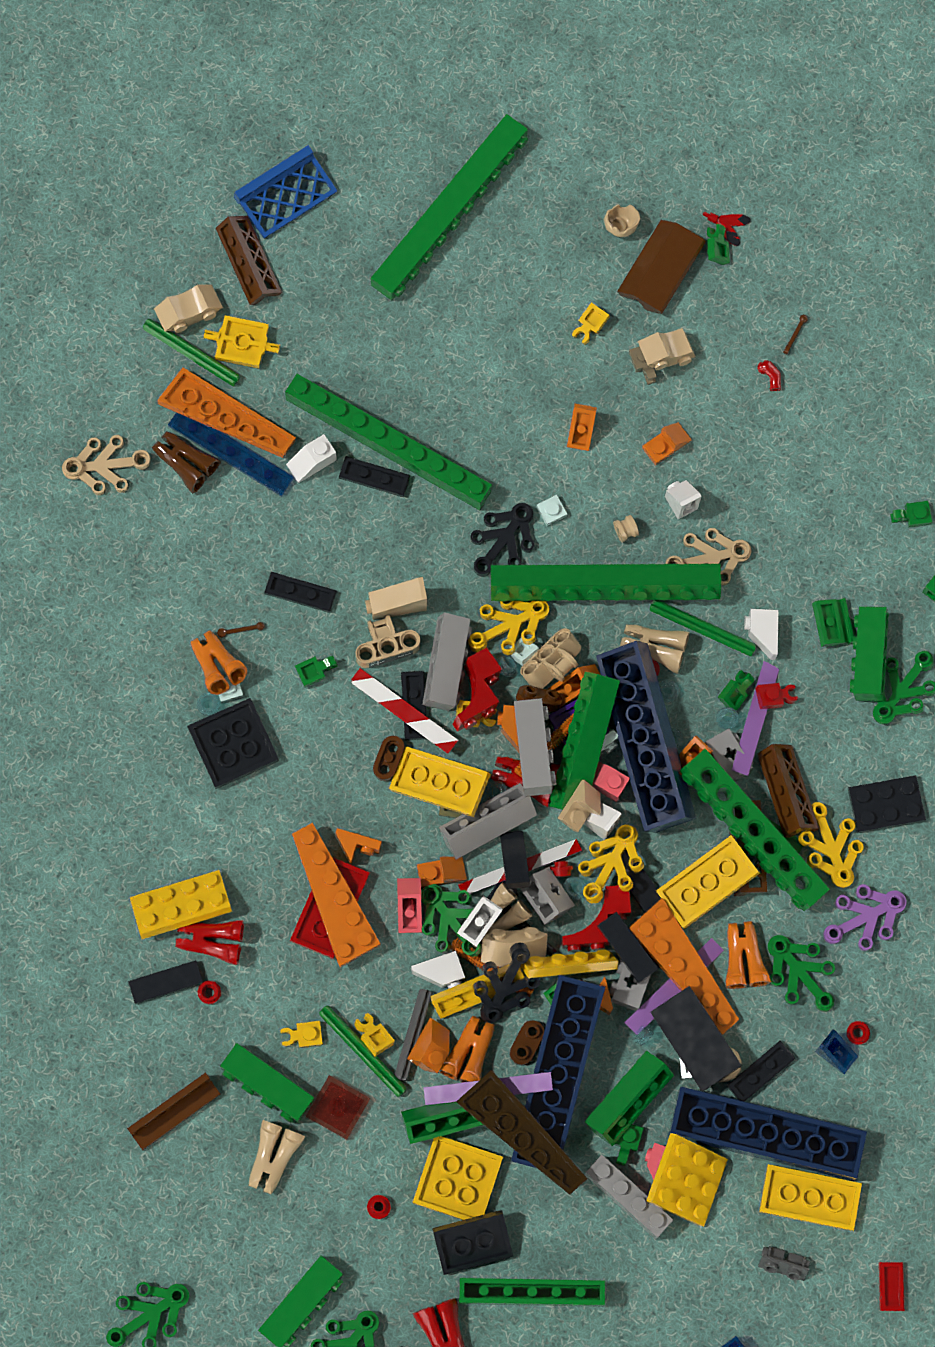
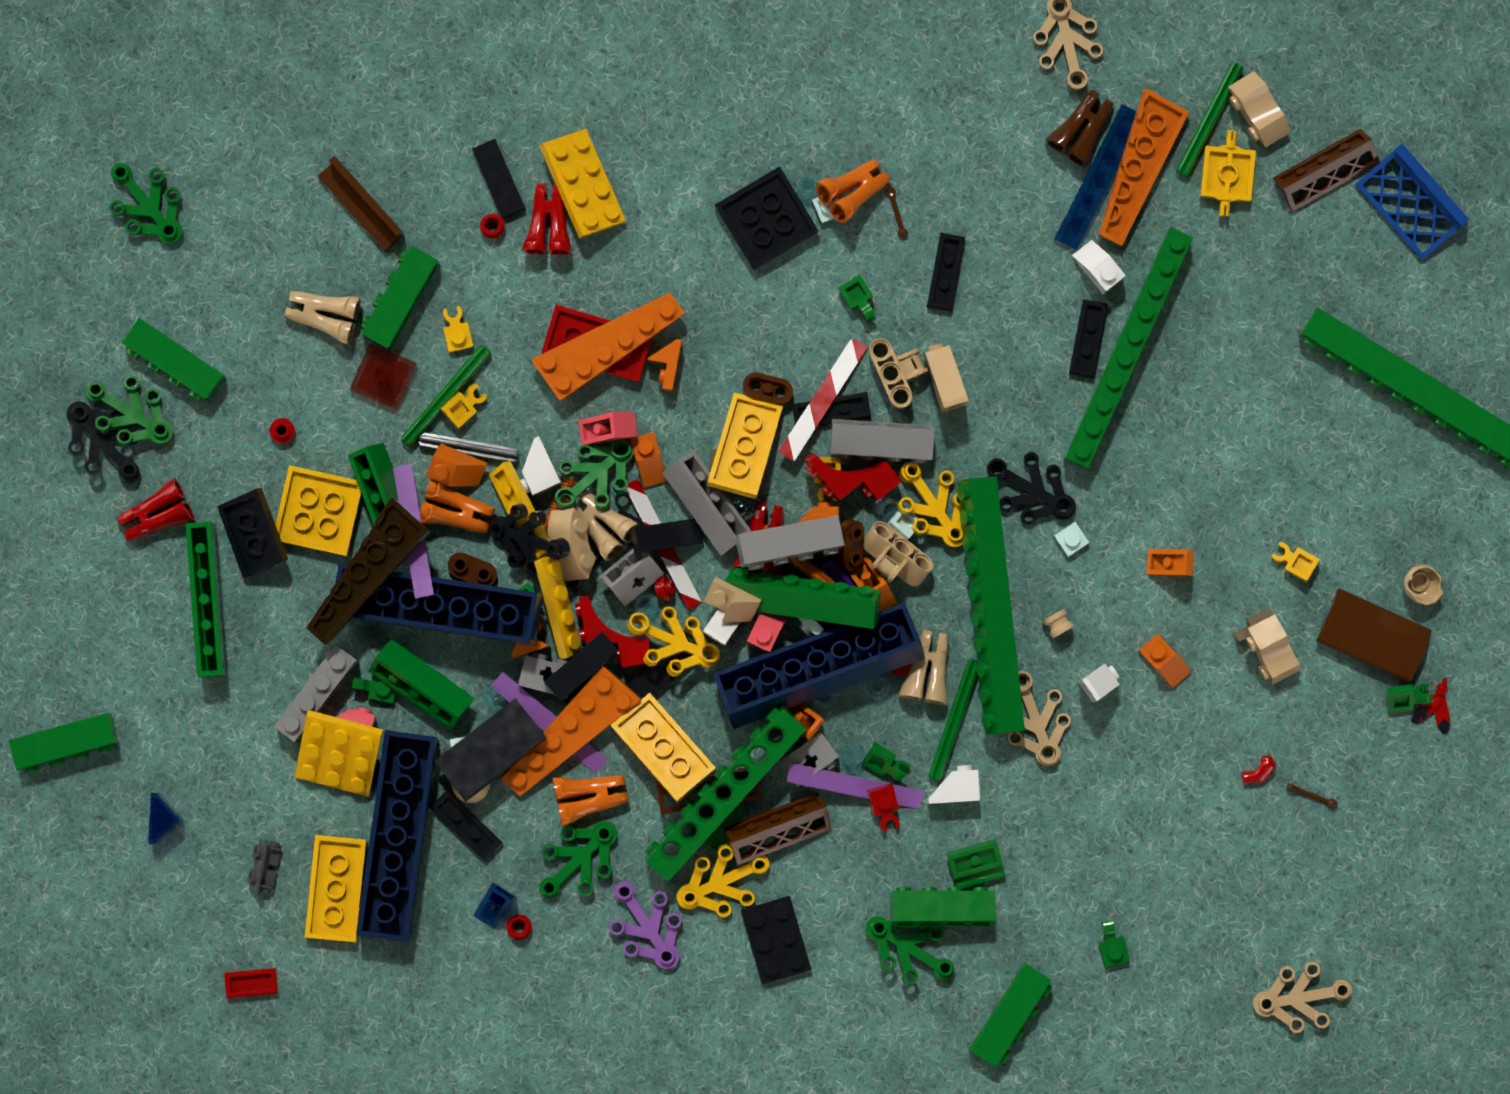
camera: 85 degrees right, 10 degrees up
(479, 921) = (587, 501): white slope -> none

